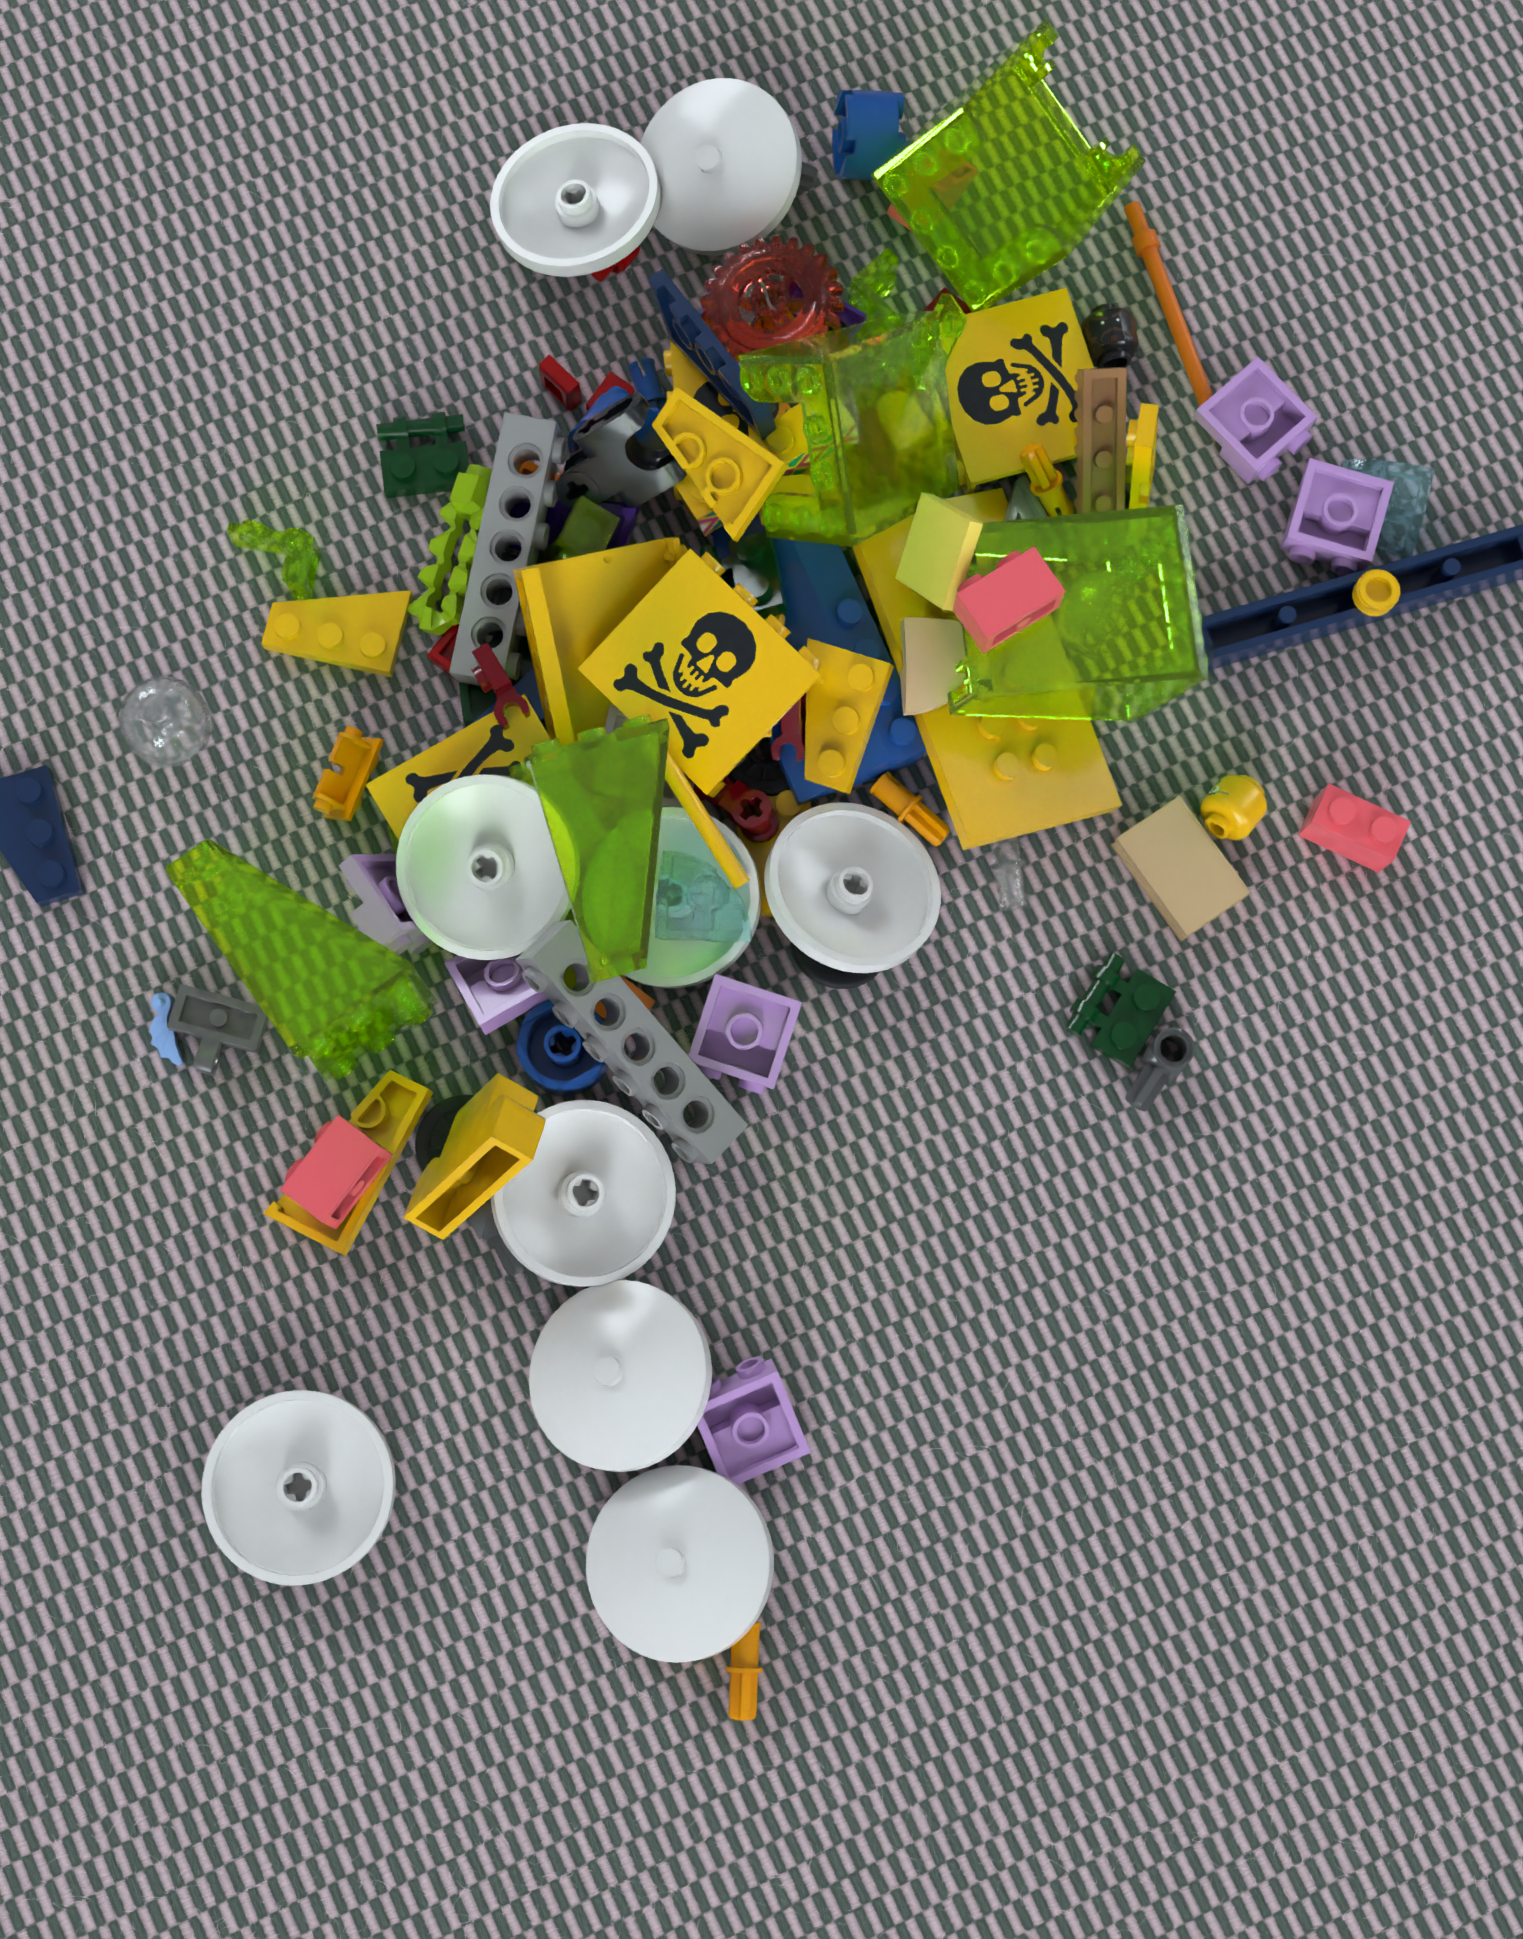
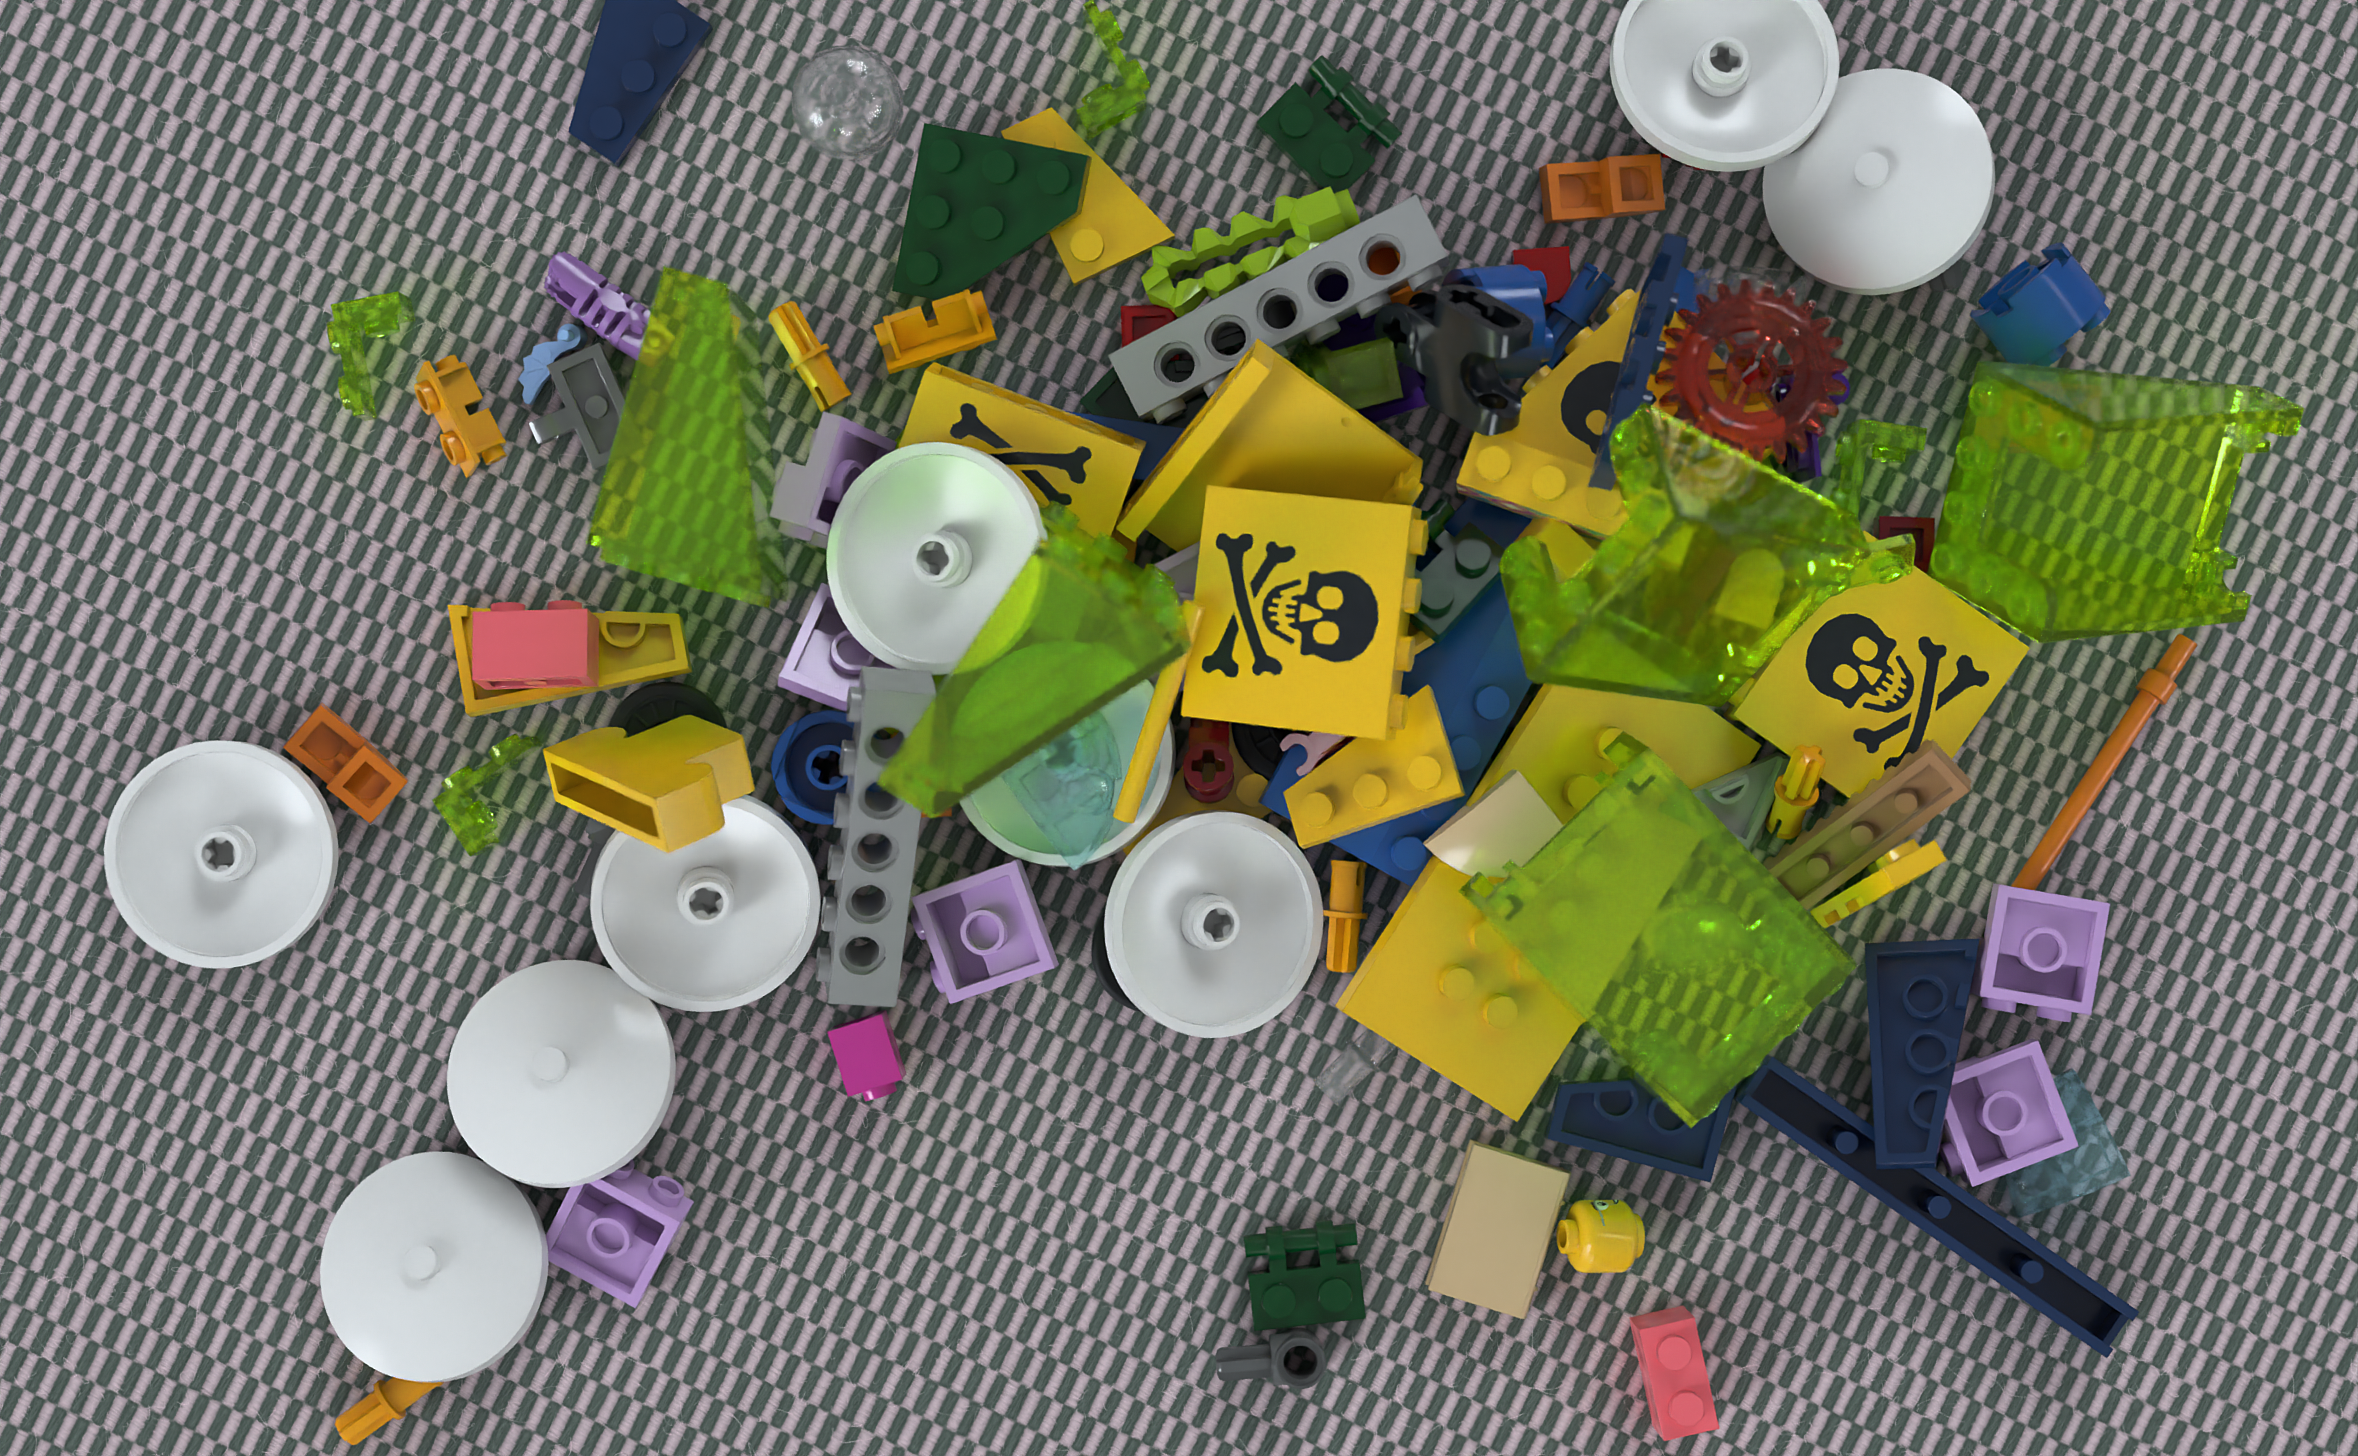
camera: 60 degrees right, 10 degrees up
(45, 1112) = (378, 318): none -> clear neon green bracket
(130, 1108) = (446, 396): none -> light orange hinge
(163, 965) = (597, 303): none -> medium lavender hinge
(296, 688) = (980, 207): none -> dark green plate
(298, 864) = (808, 356): none -> light orange axle
(308, 1361) = (346, 762): none -> orange slope
(413, 1305) = (472, 820): none -> clear neon green bracket
(492, 676) = (1131, 407): dark red plate -> none
(560, 383) = (1513, 206): red tile -> none
(593, 328) = (1602, 188): none -> orange slope
(721, 460) = (1531, 460): yellow wing -> none
(765, 1171) = (867, 1056): none -> dark pink brick
(938, 550) = (1612, 754): light yellow tile -> none
(1007, 598) = (1609, 869): coral brick -> none
(1110, 336) = (2014, 732): black head -> none
(1181, 733) = (1632, 1125): none -> dark blue wing
(1255, 529) = (1915, 1032): none -> dark blue wing
(1376, 592) = (1939, 1216): yellow tile -> none

